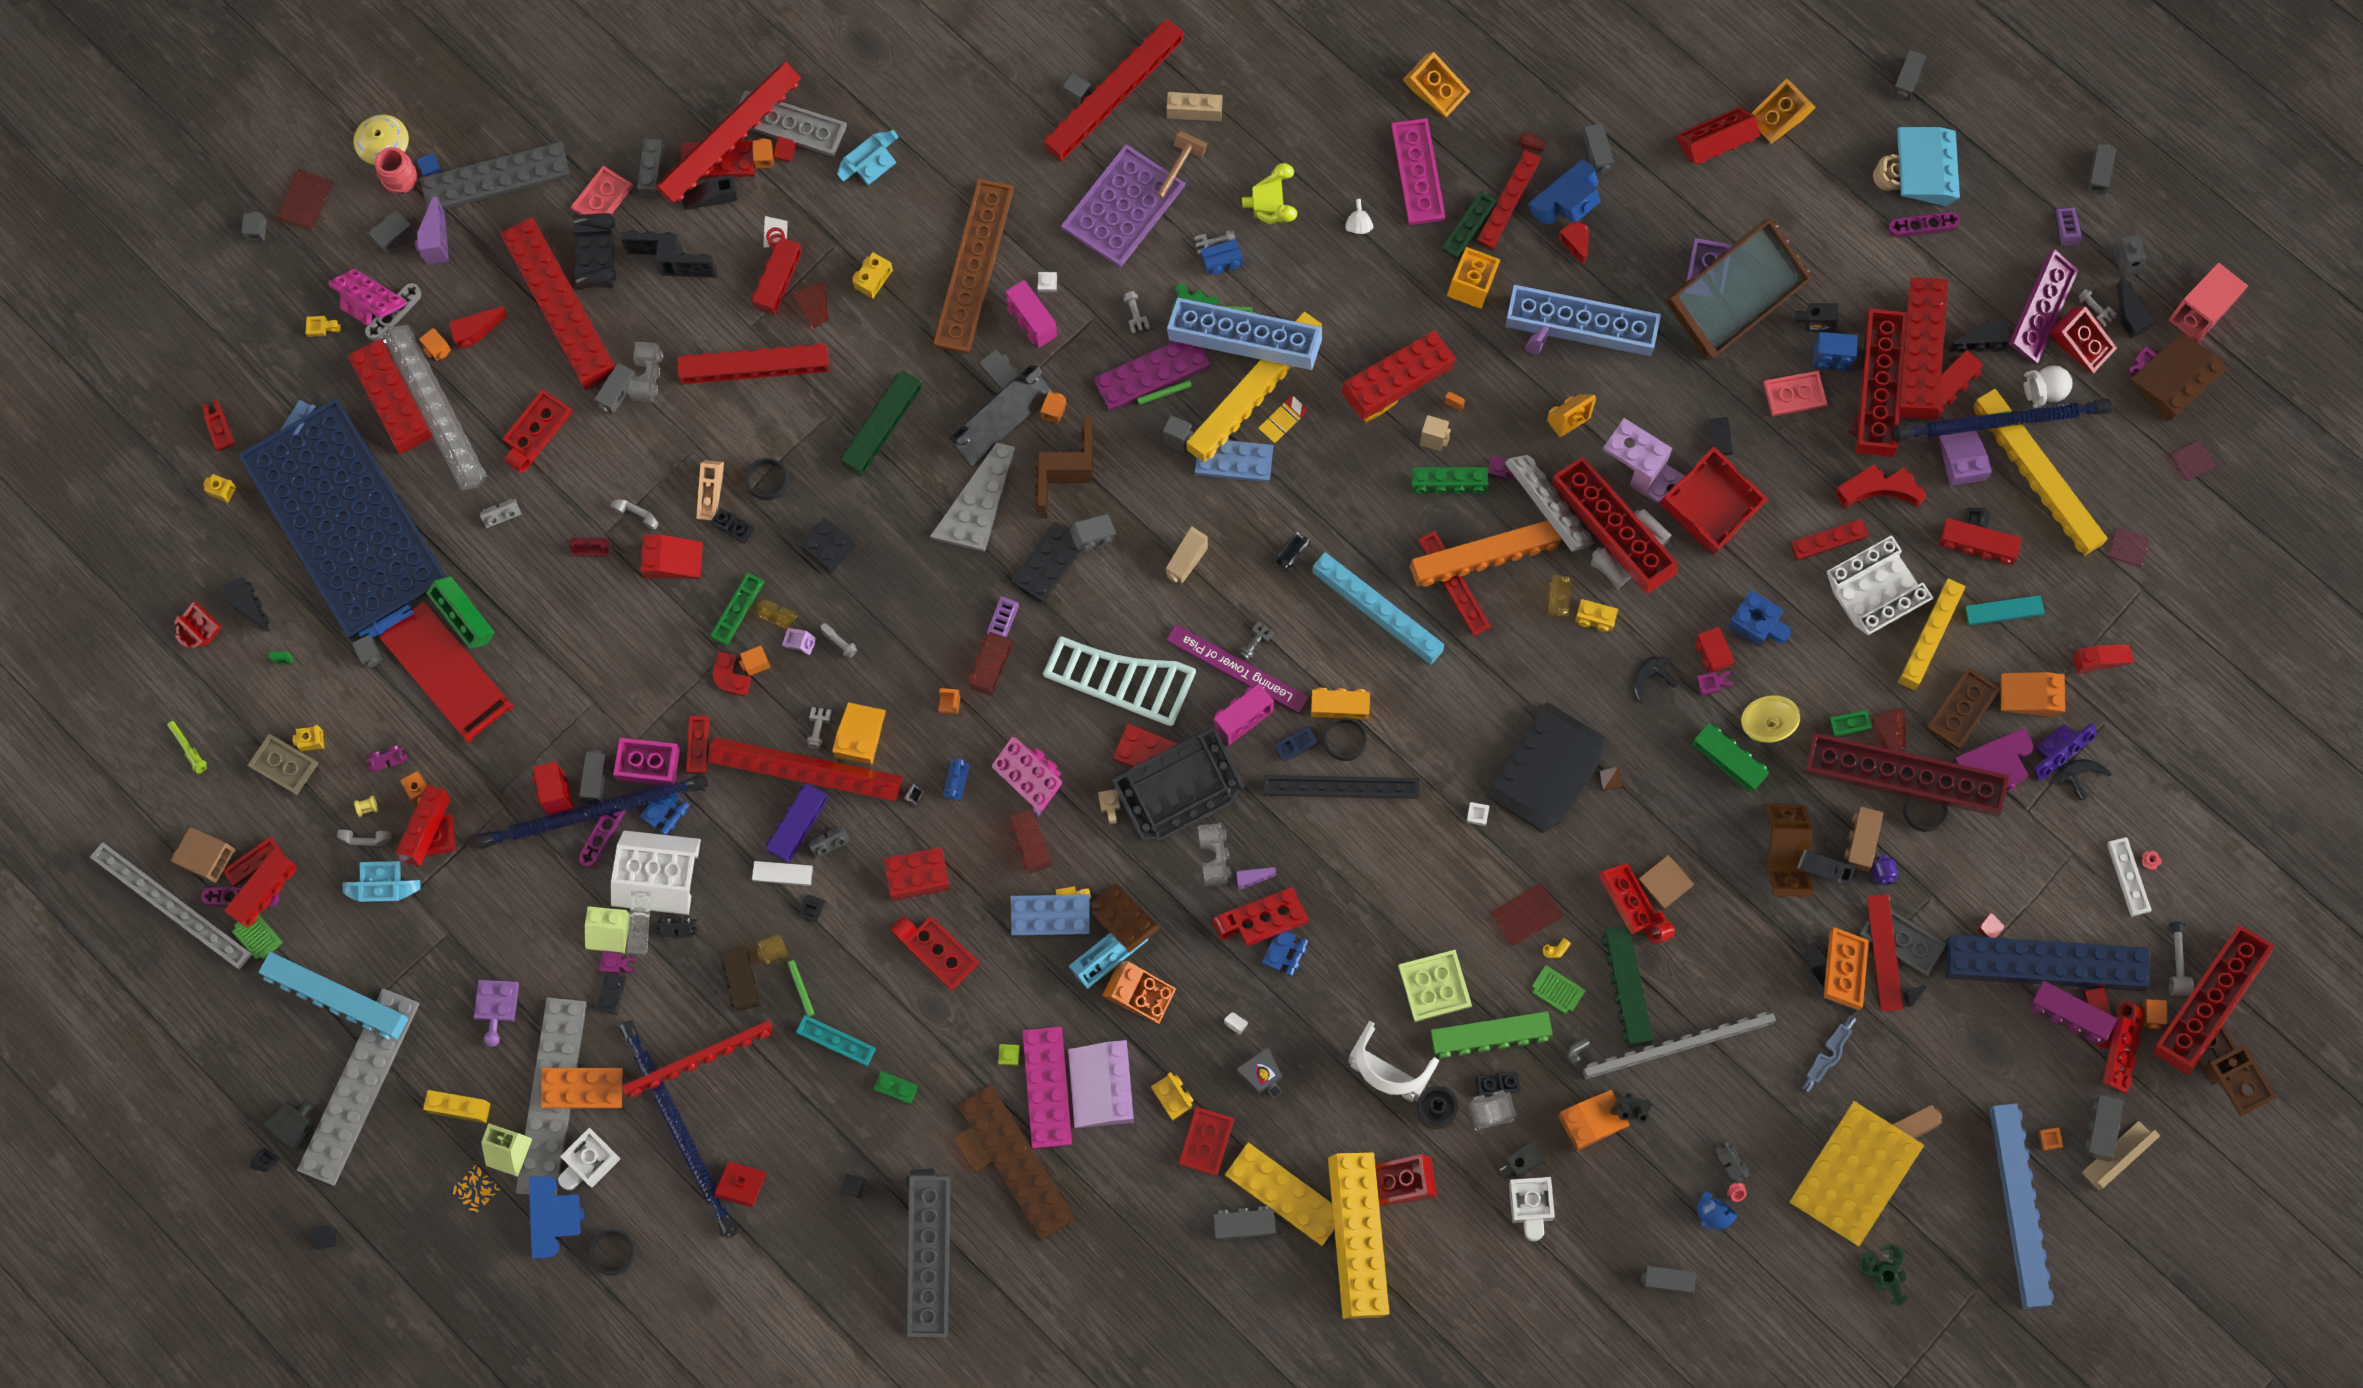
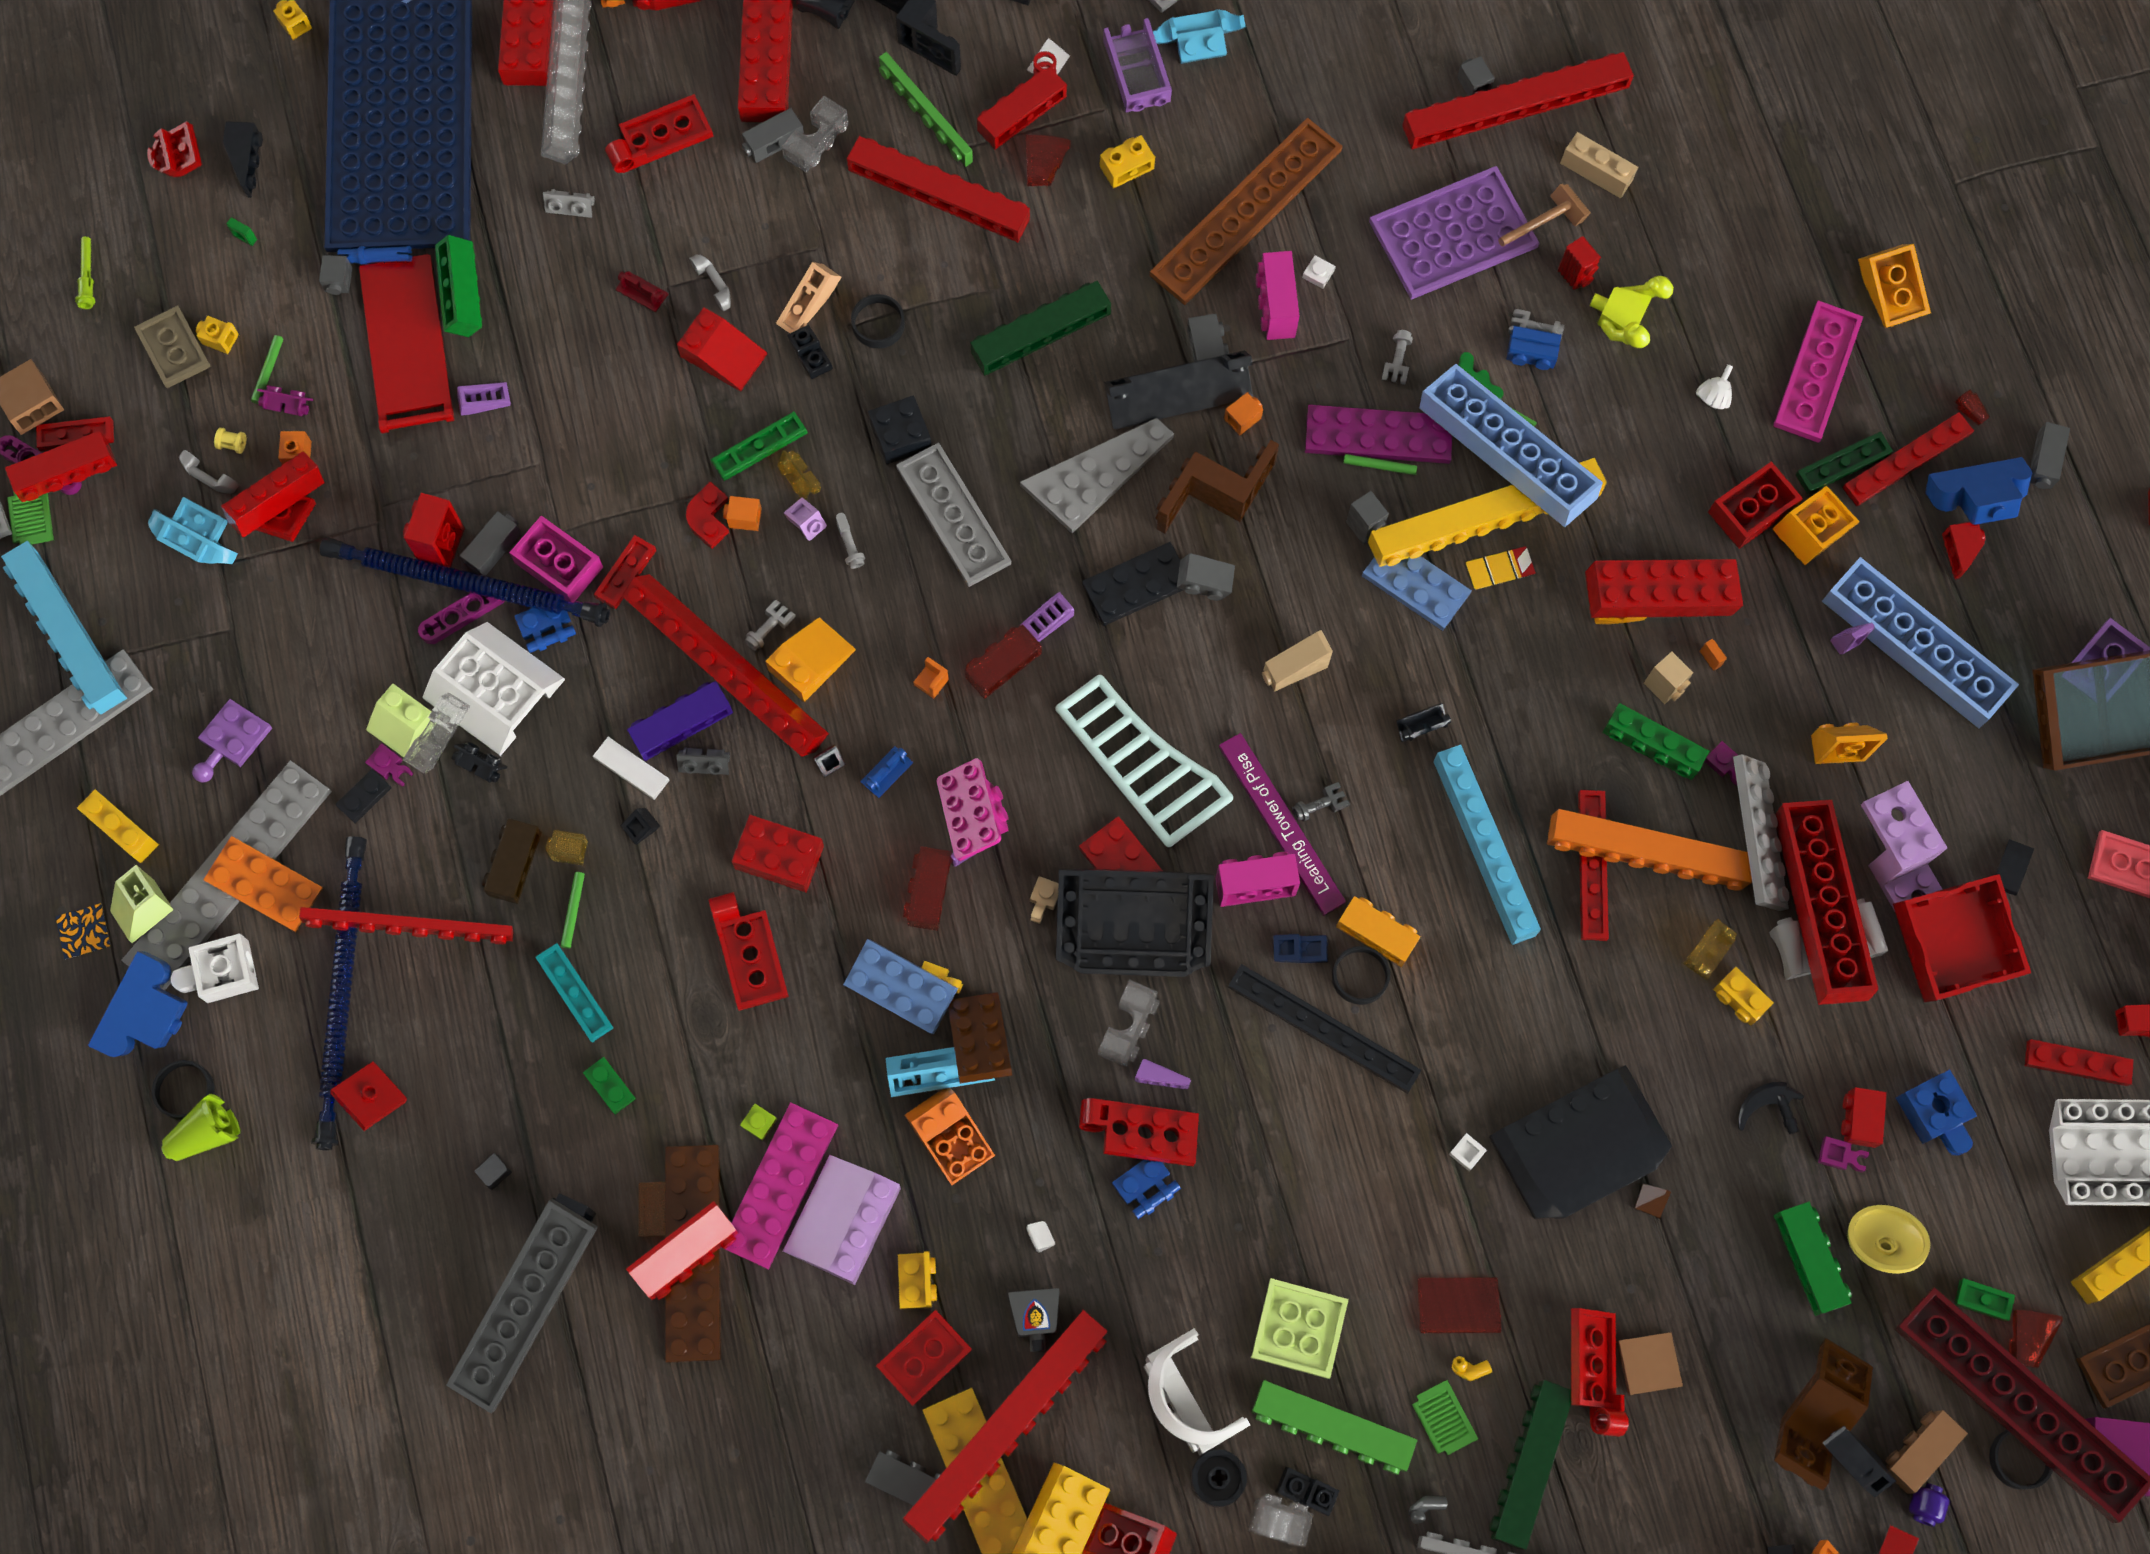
camera: 25 degrees right, 0 degrees up
(359, 743) = (267, 368): none -> bright green bar
(522, 690) = (475, 406): none -> medium lavender slope
(642, 1270) = (201, 1130): none -> lime cone
(706, 311) = (929, 114): none -> bright green plate
(841, 204) = (1138, 67): none -> door
(898, 583) = (953, 514): none -> light grey plate
(1012, 1162) = (683, 1251): none -> slope
(1220, 183) = (1579, 263): none -> red brick
(1284, 1152) = (1004, 1427): none -> red brick
(1427, 286) = (1755, 505): none -> red brick

